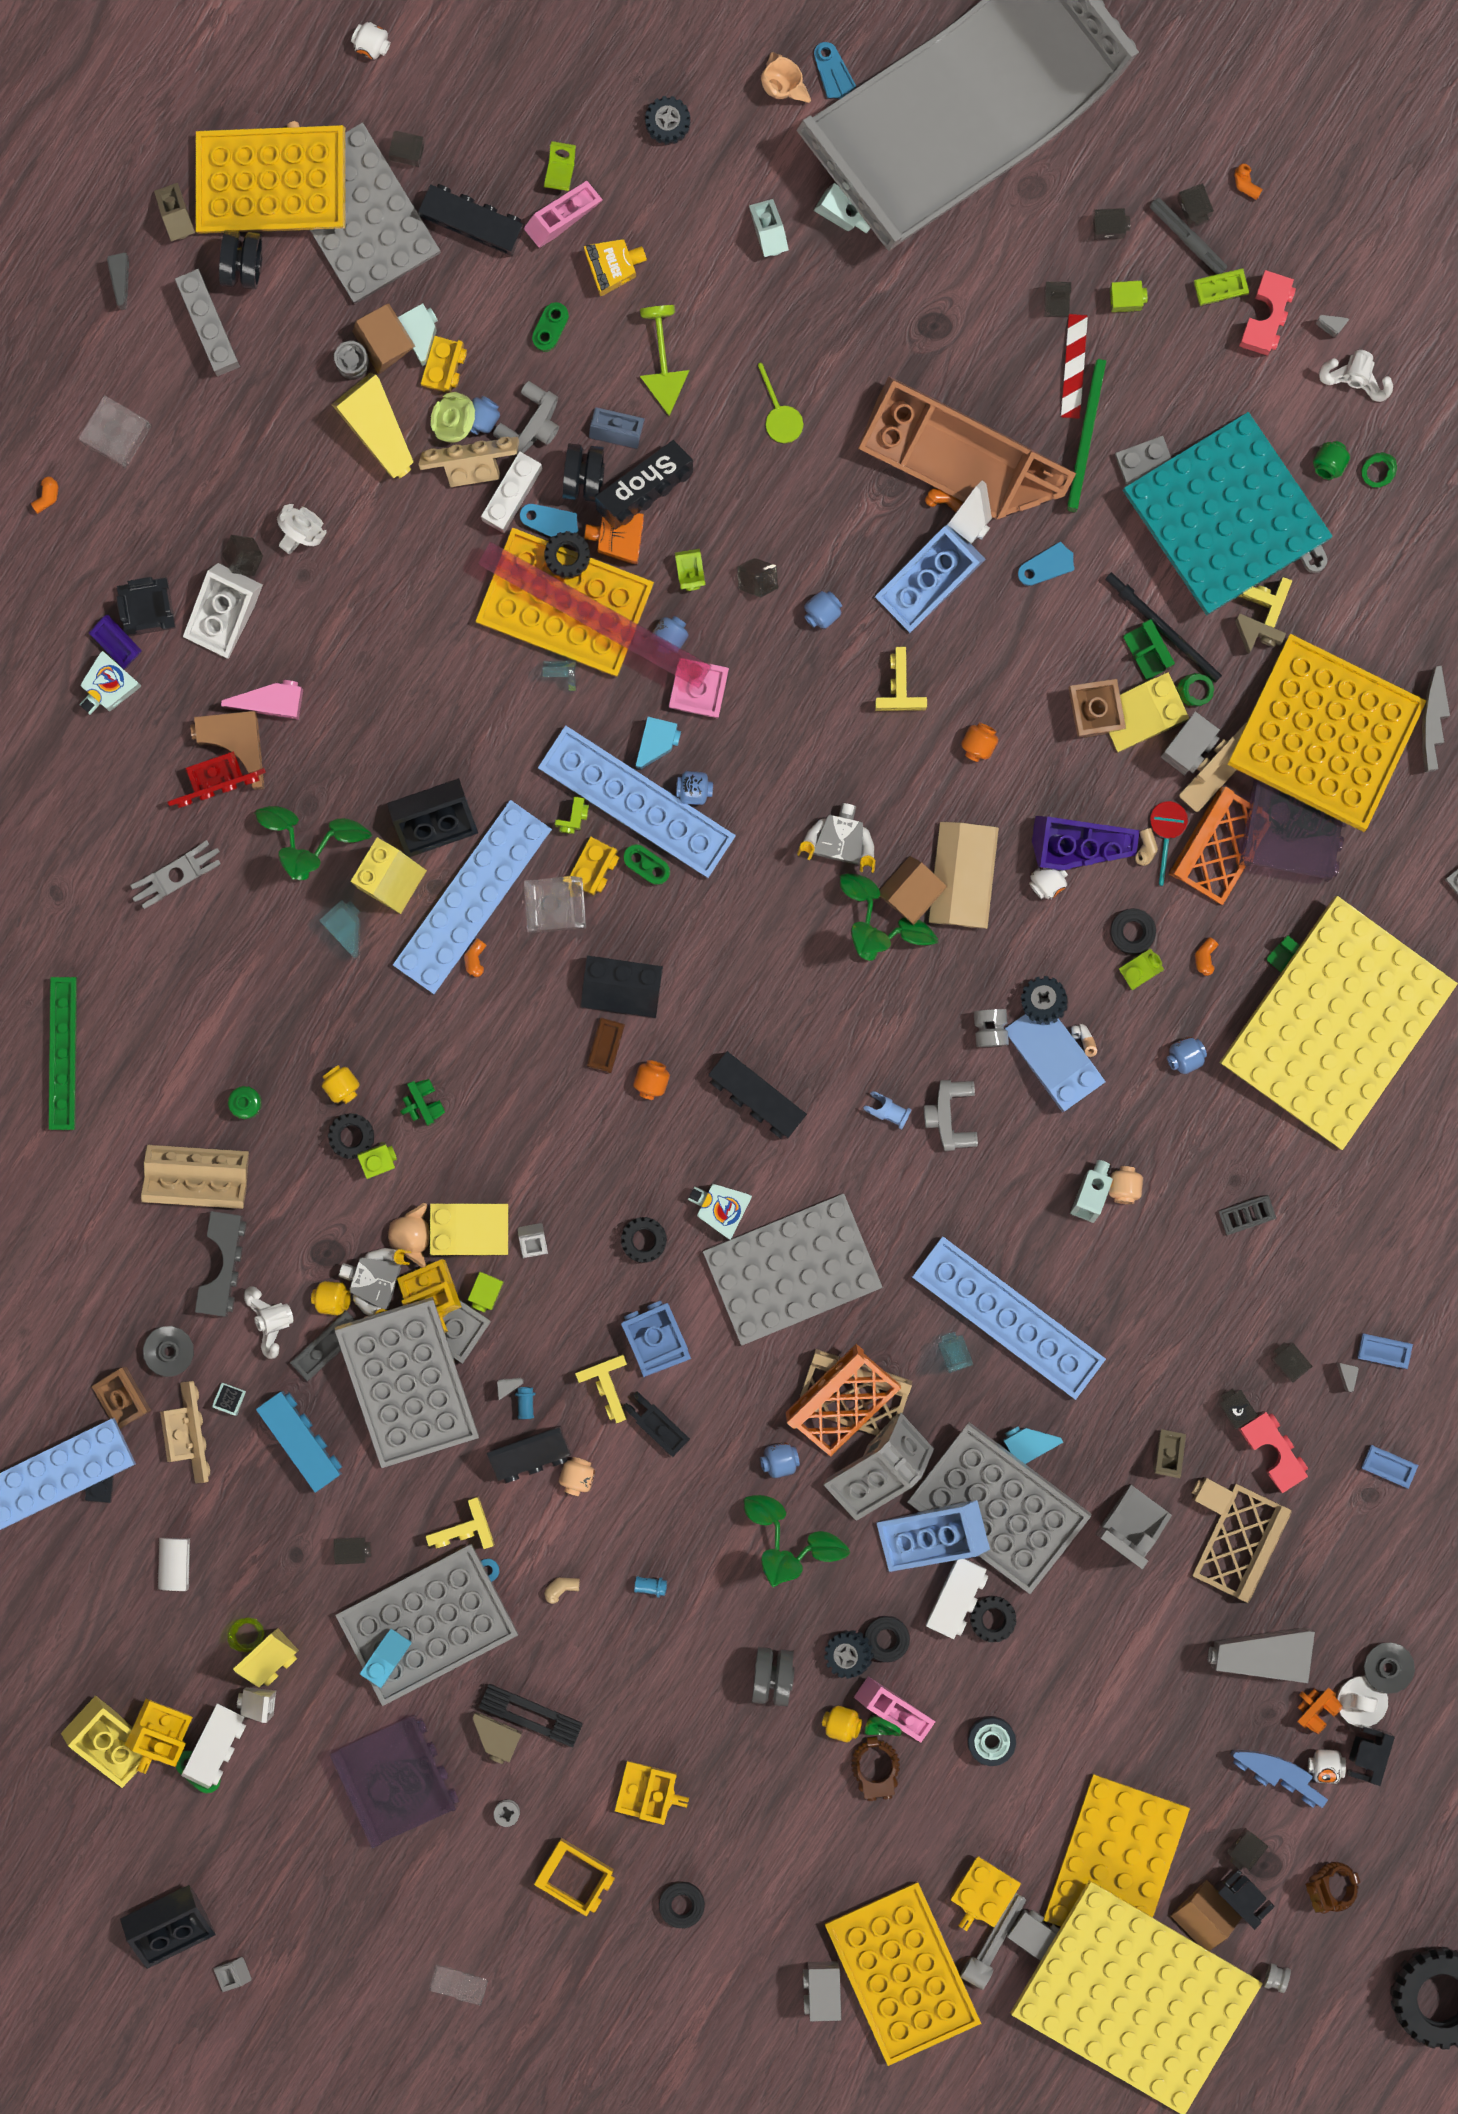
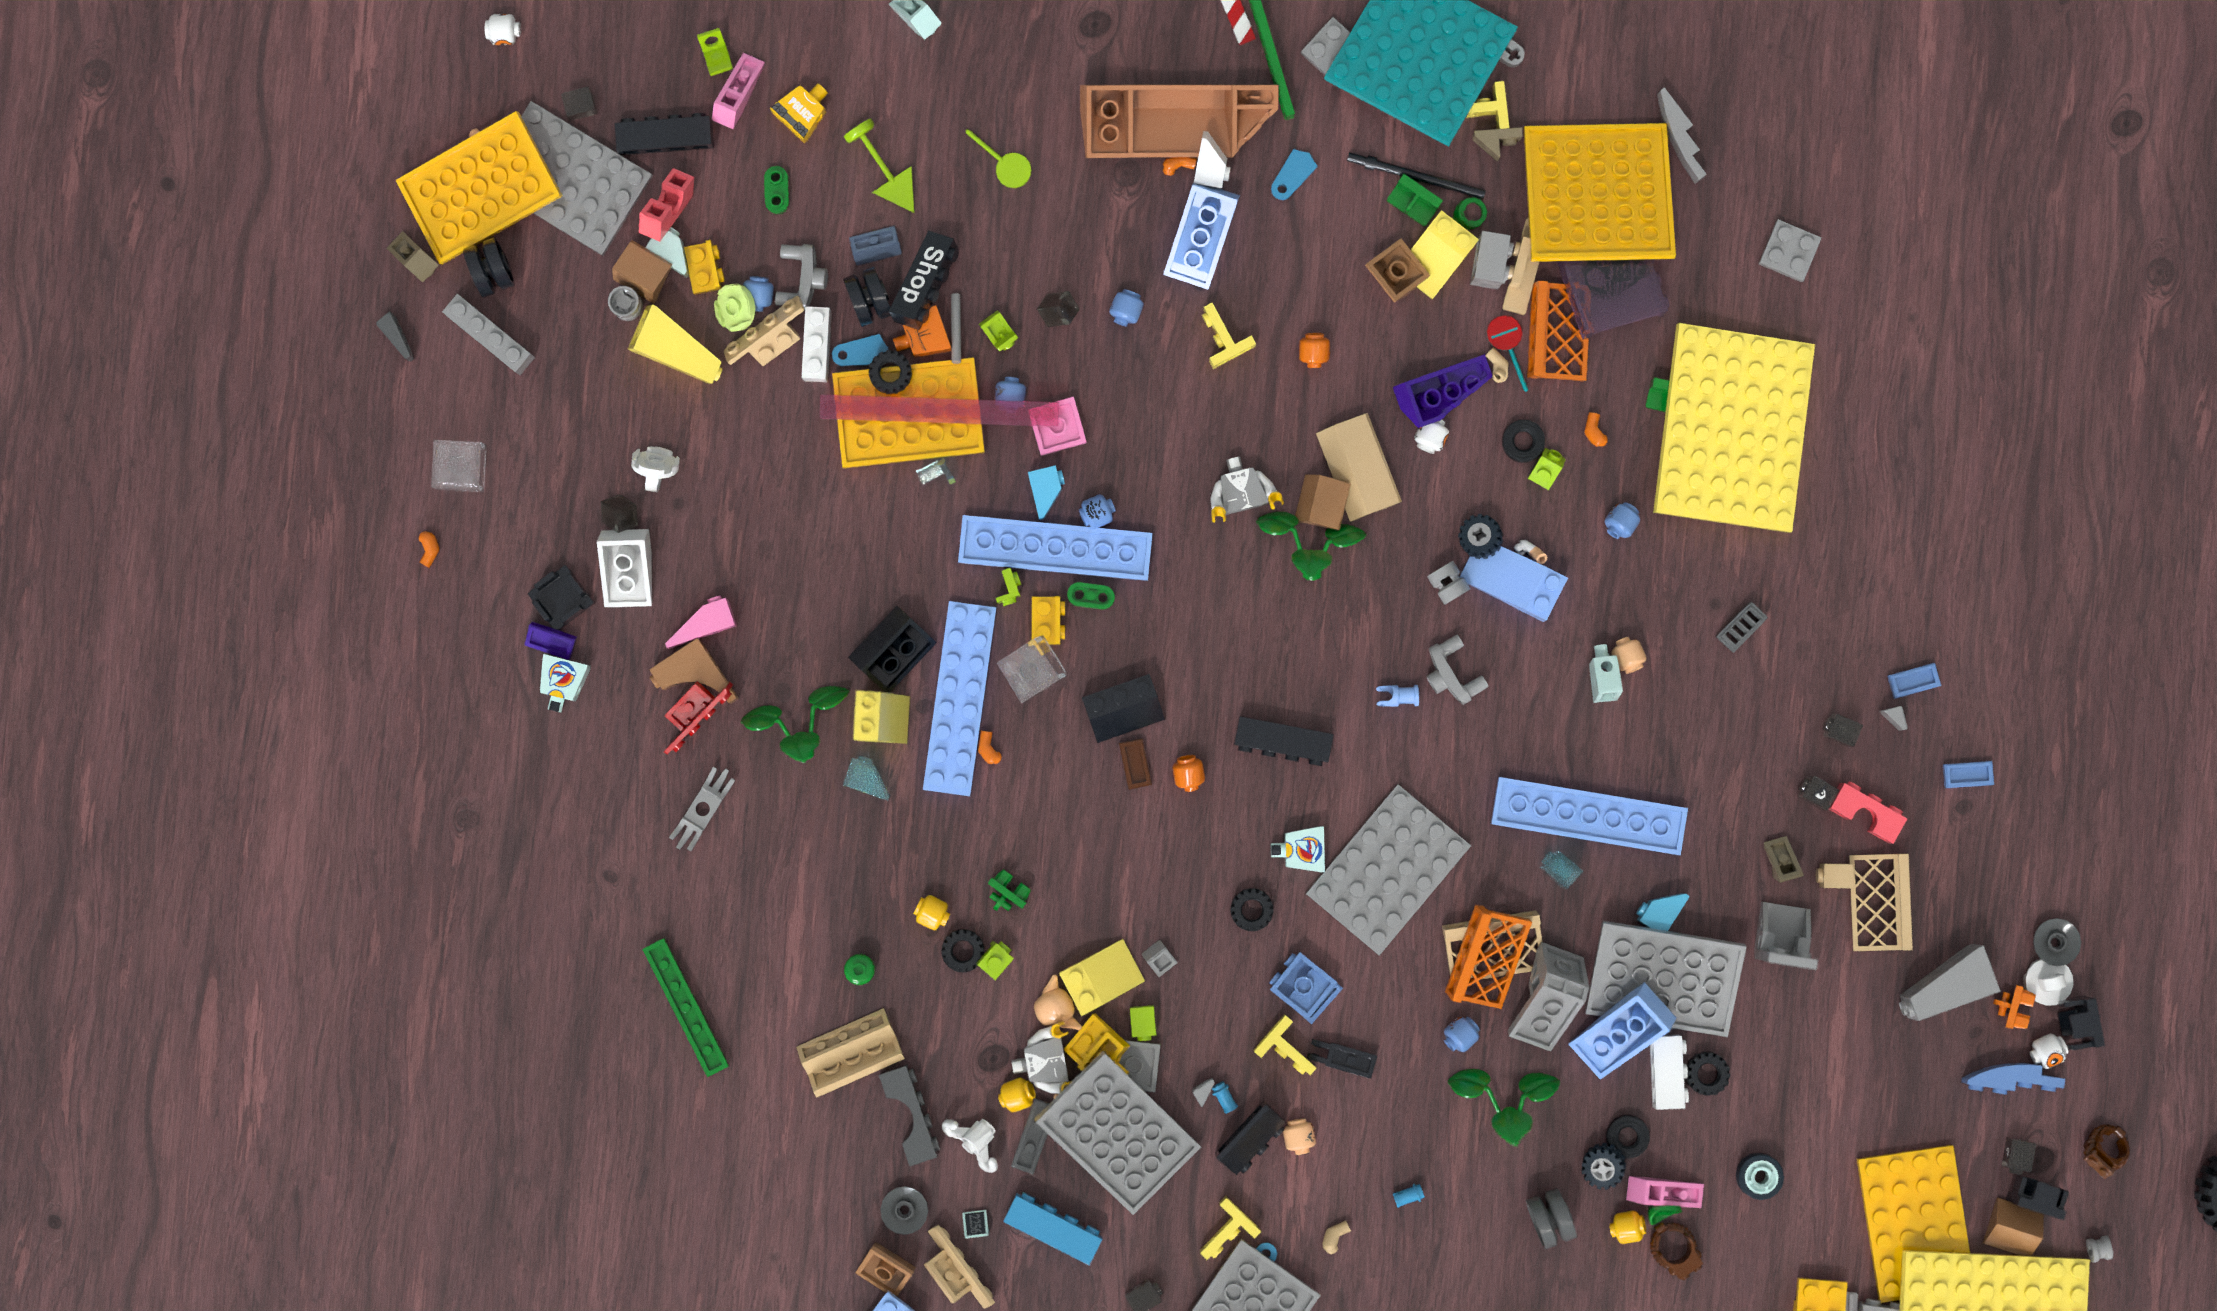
camera: 25 degrees left, 0 degrees up
(428, 294) = (660, 215): none -> coral arch
(651, 545) = (955, 328): none -> light grey bar

